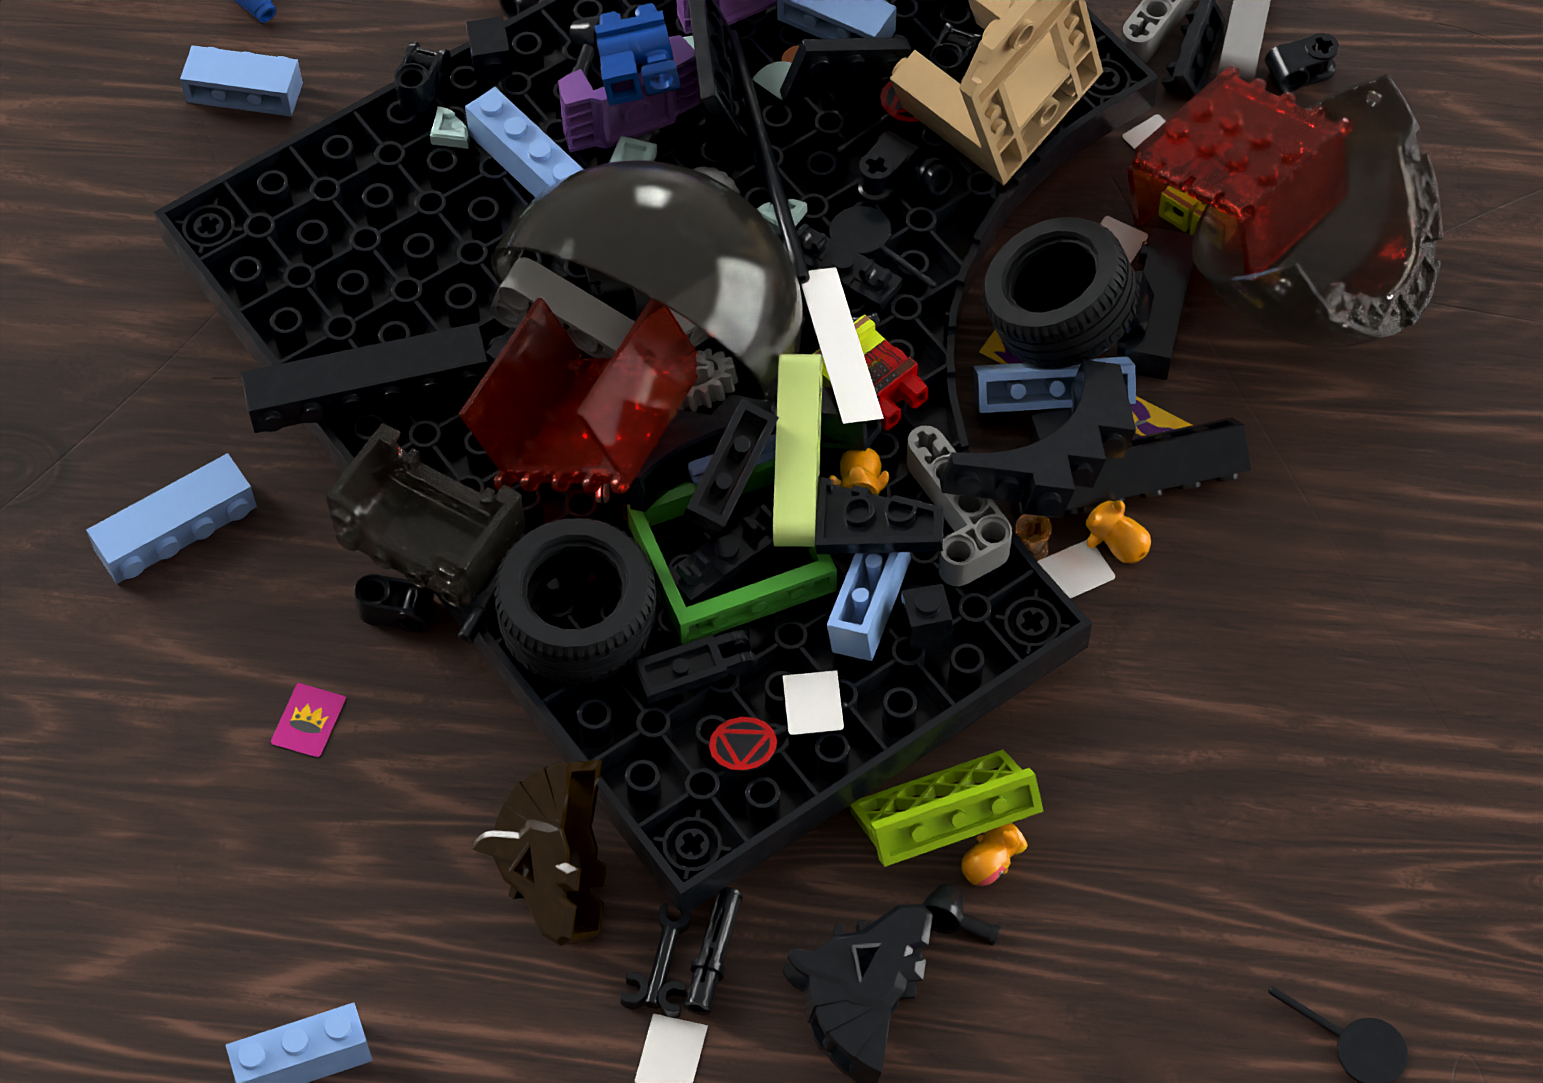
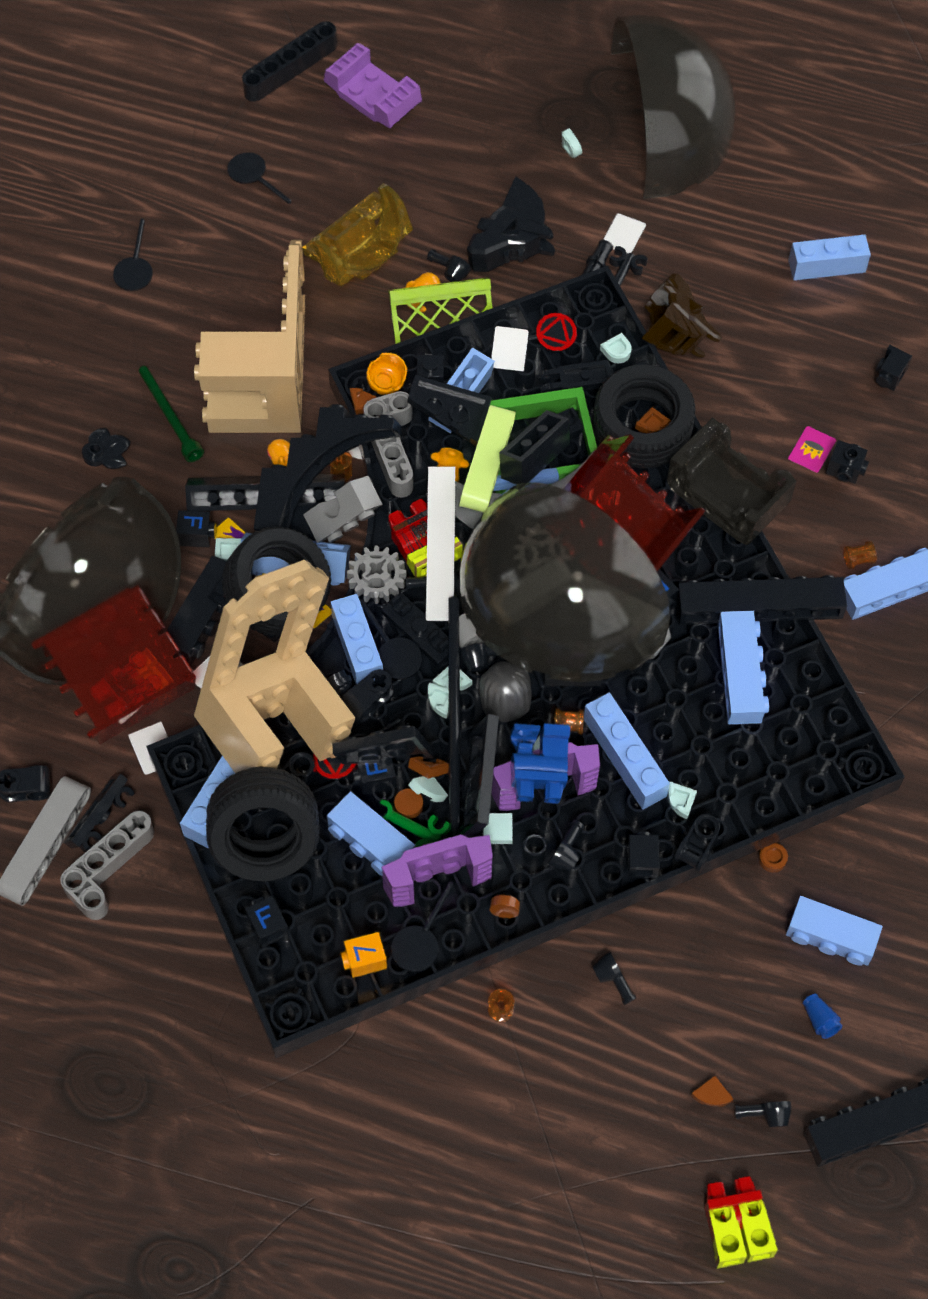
camera: 170 degrees left, 5 degrees up
(181, 863) = (892, 367): none -> black brick
(225, 551) = (860, 555): none -> clear orange bush
(250, 681) = (847, 462): none -> black brick
(383, 276) = (741, 667): none -> light blue brick
(563, 614) = (652, 422): none -> dark orange tile
(638, 735) = (616, 349): none -> light aqua tile
(766, 27) = (428, 835): none -> green bar
(776, 107) = (428, 769): none -> dark orange tile
(795, 187) = (439, 699): none -> light aqua tile
(923, 224) = (355, 637): none -> light blue brick
(923, 317) = (376, 575): none -> light grey gear
(994, 604) = (386, 373): none -> light orange hair
(998, 407) = (352, 503): none -> light grey arch
(1018, 574) = (359, 399): none -> dark orange tile
(1110, 911) = (355, 244): none -> clear yellow piece
(1155, 398) = (225, 547): none -> light aqua tile
(1192, 586) = (257, 376): none -> tan bracket
(1212, 402) = (195, 528): none -> black brick
(1265, 526) = (190, 449): none -> dark green piece
(1390, 509) = (105, 449): none -> black plate
(1484, 814) = (133, 272): none -> black piece

